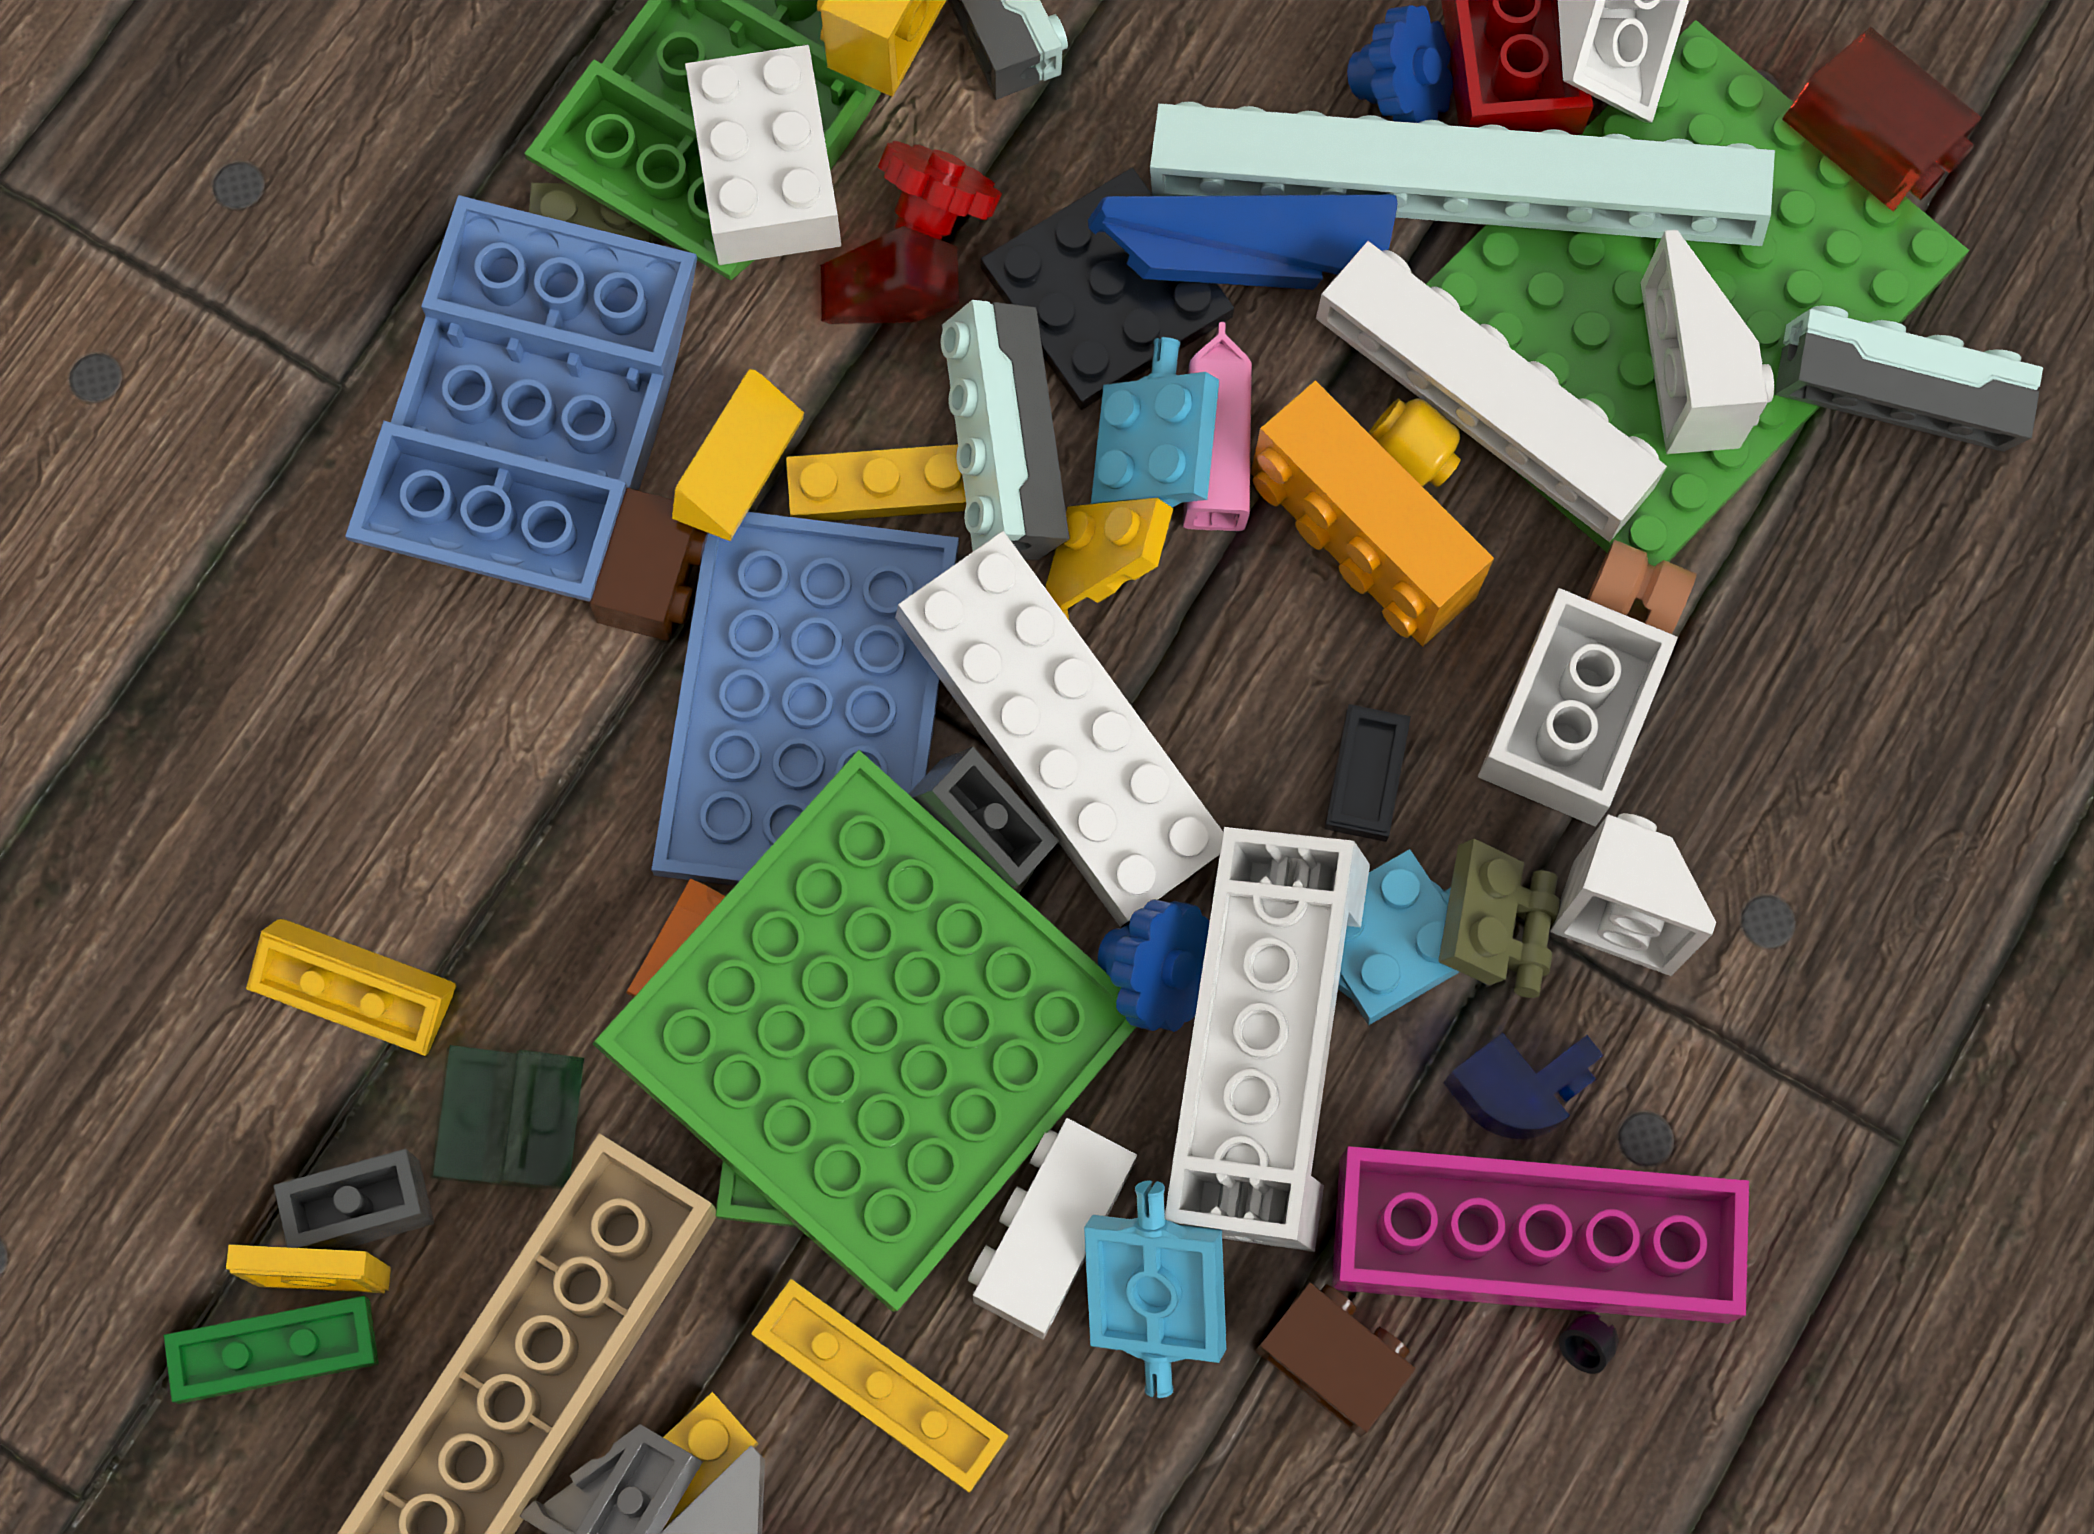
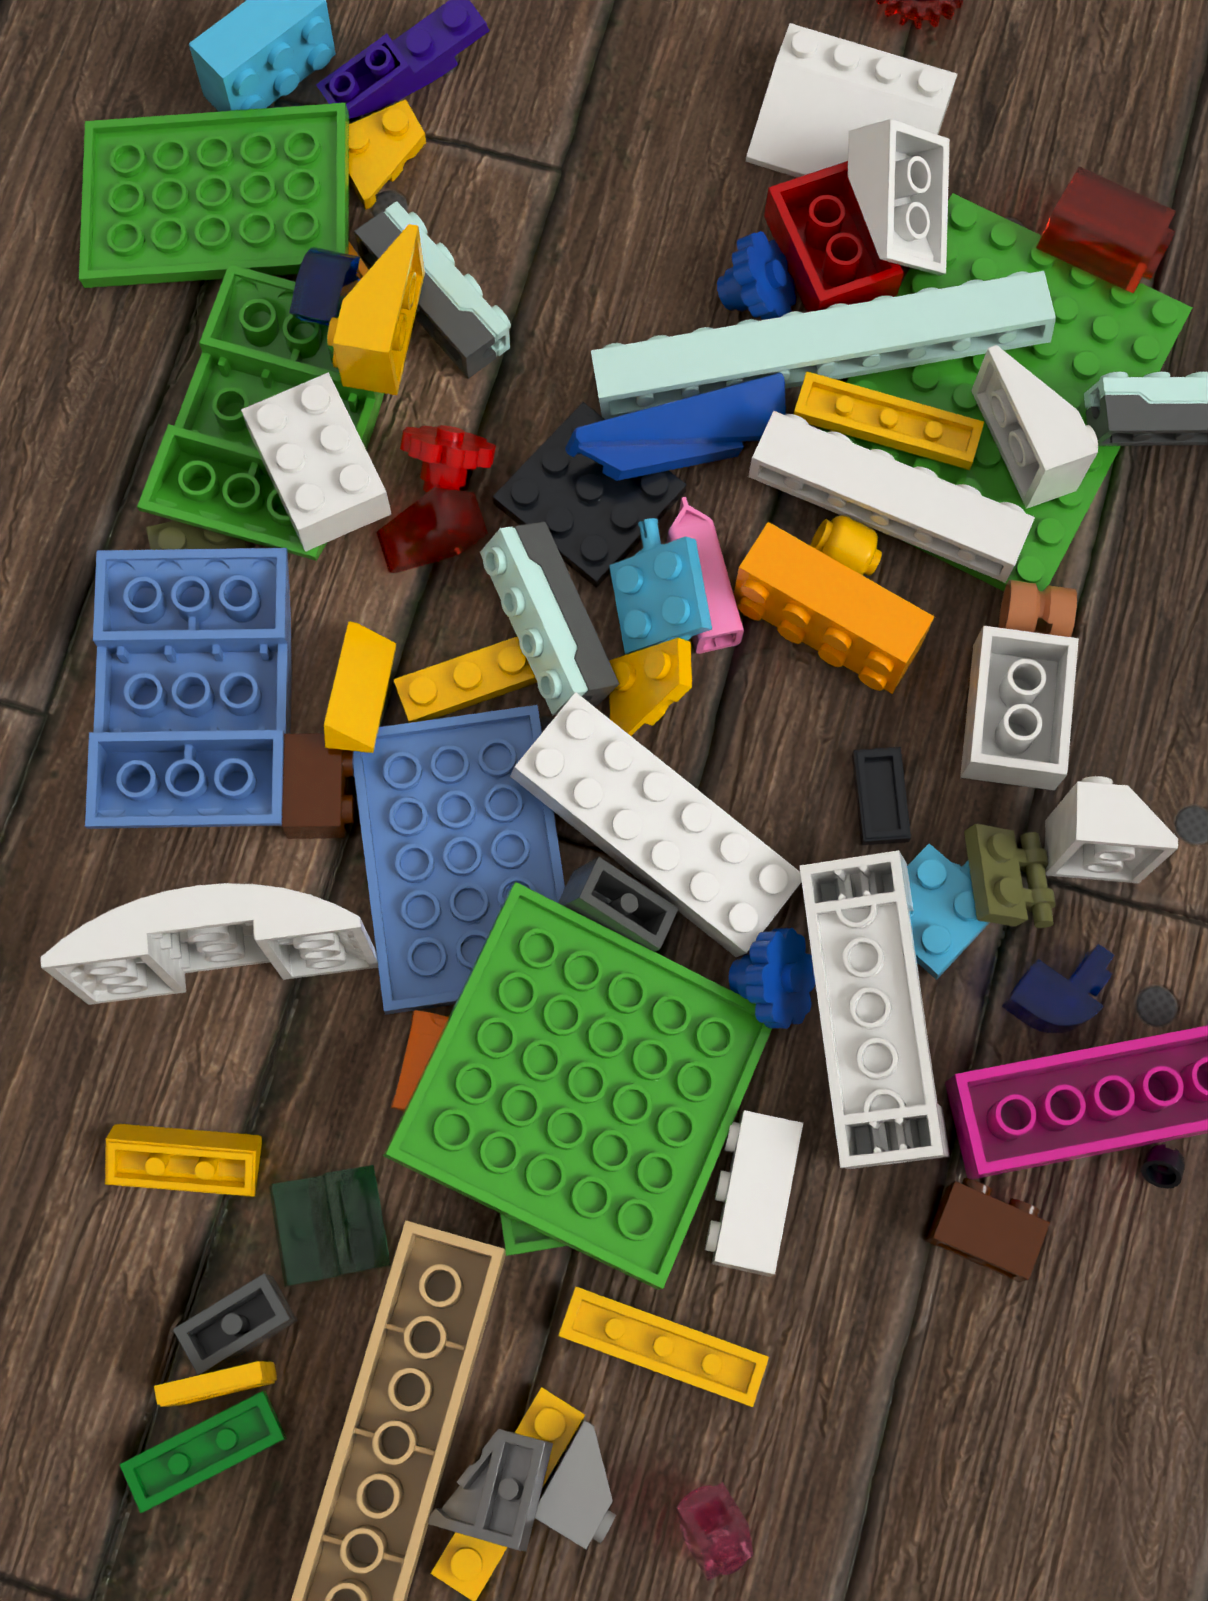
camera: 15 degrees left, 0 degrees up
(406, 697) = (197, 928): none -> white slope
(1155, 1288) = (846, 1218): medium azure plate -> none
(1517, 293) = (889, 420): none -> yellow plate

